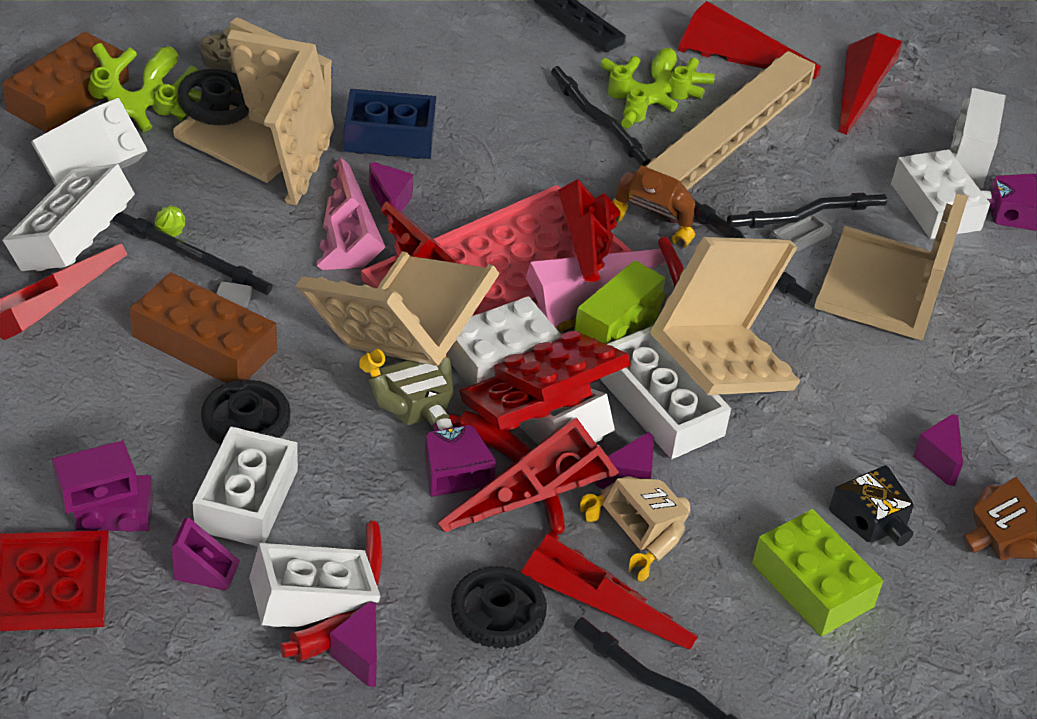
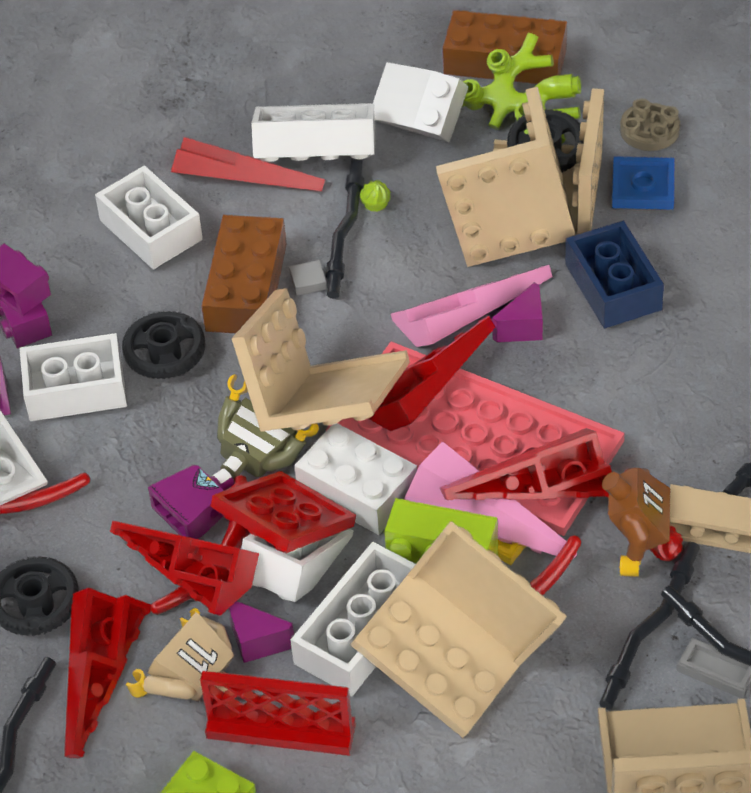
camera: 75 degrees right, 5 degrees up
(74, 364) = (149, 217): none -> white brick
(561, 365) = (318, 519): red plate -> none
(738, 478) = (284, 727): none -> red fence

